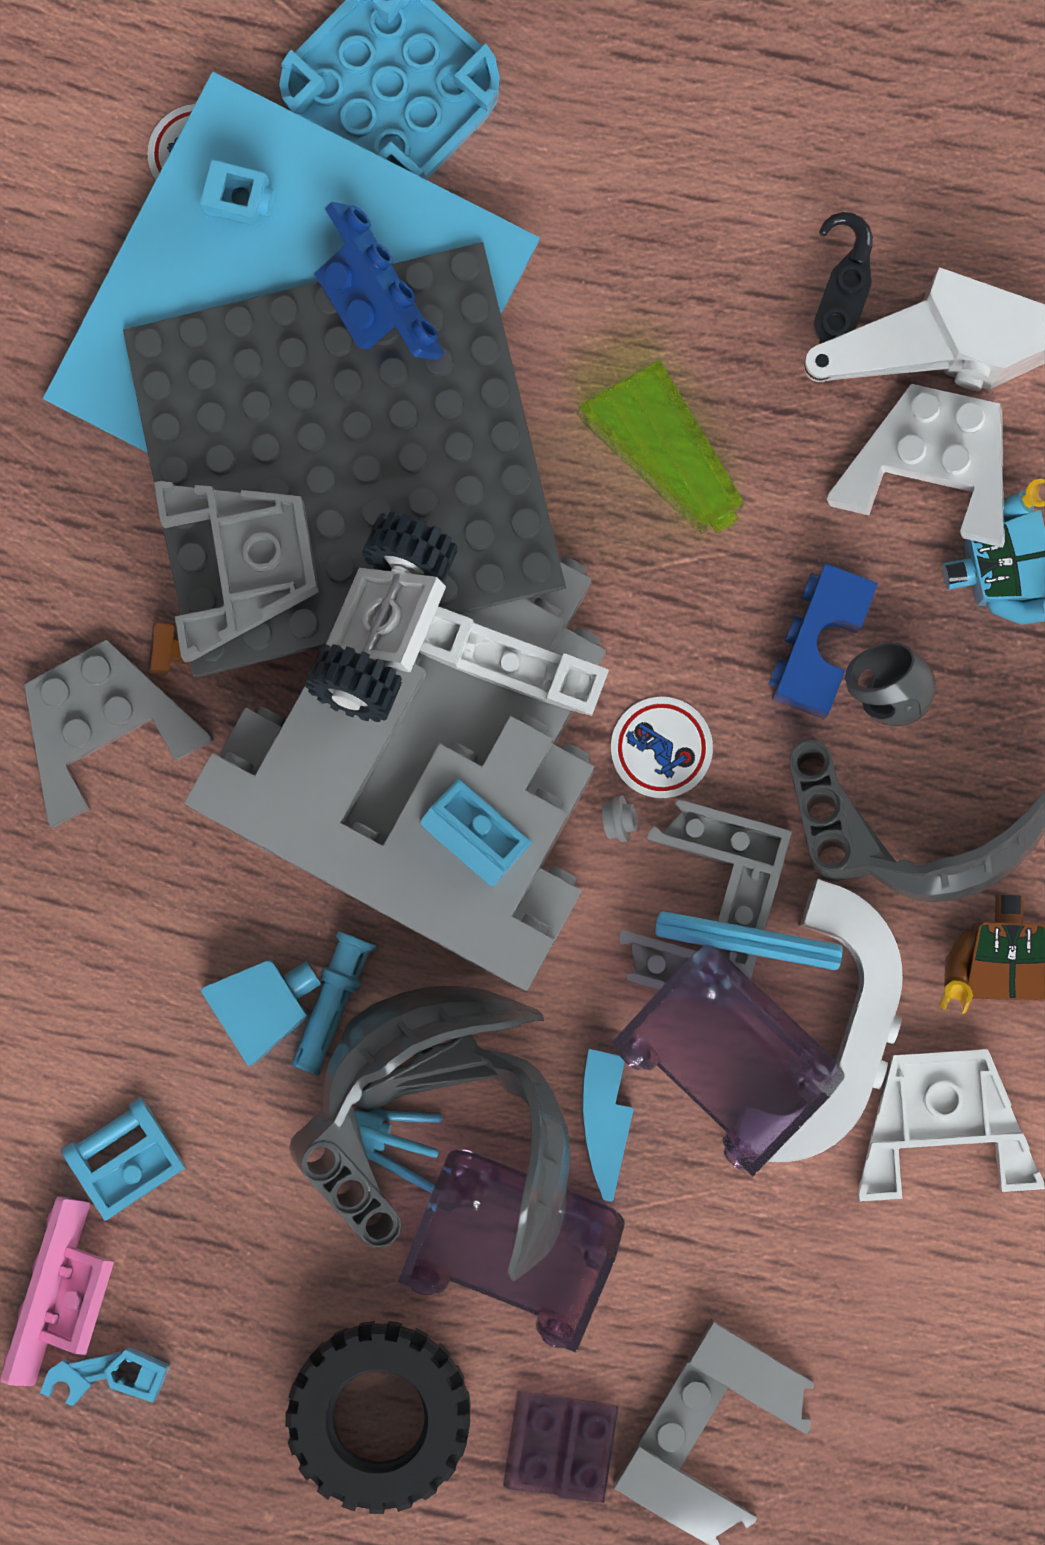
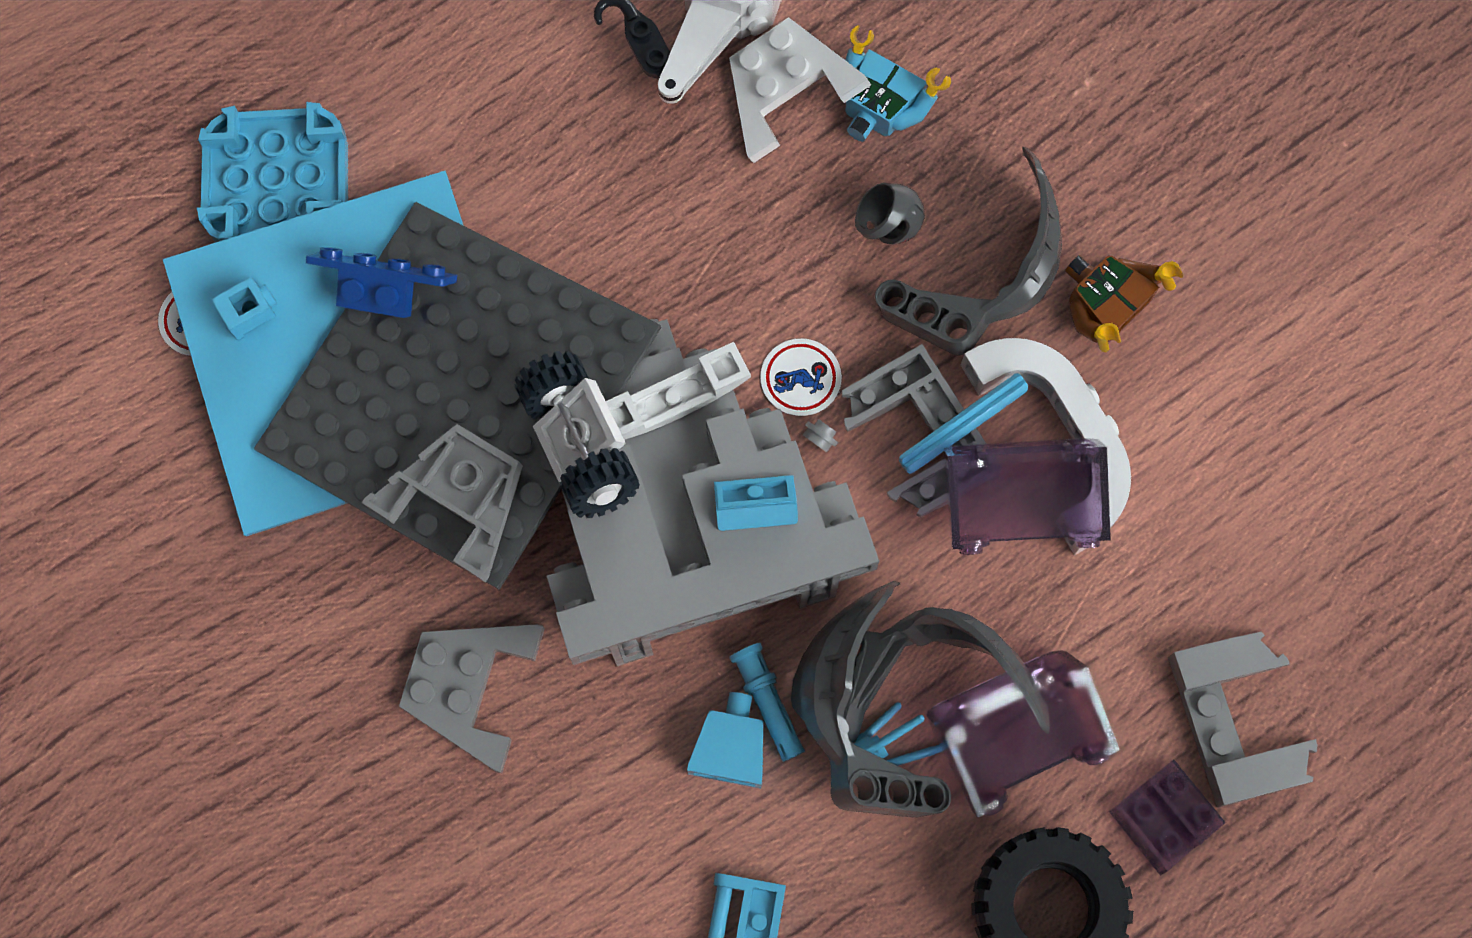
camera: 45 degrees left, 10 degrees down
(163, 649) = (464, 600): dark orange tile -> none
(604, 1120) = (991, 605): medium azure slope -> none
(662, 442) = (631, 214): clear neon green slope -> none
(834, 601) = (838, 259): blue arch -> none
(941, 1103) = (1160, 406): white wing -> none

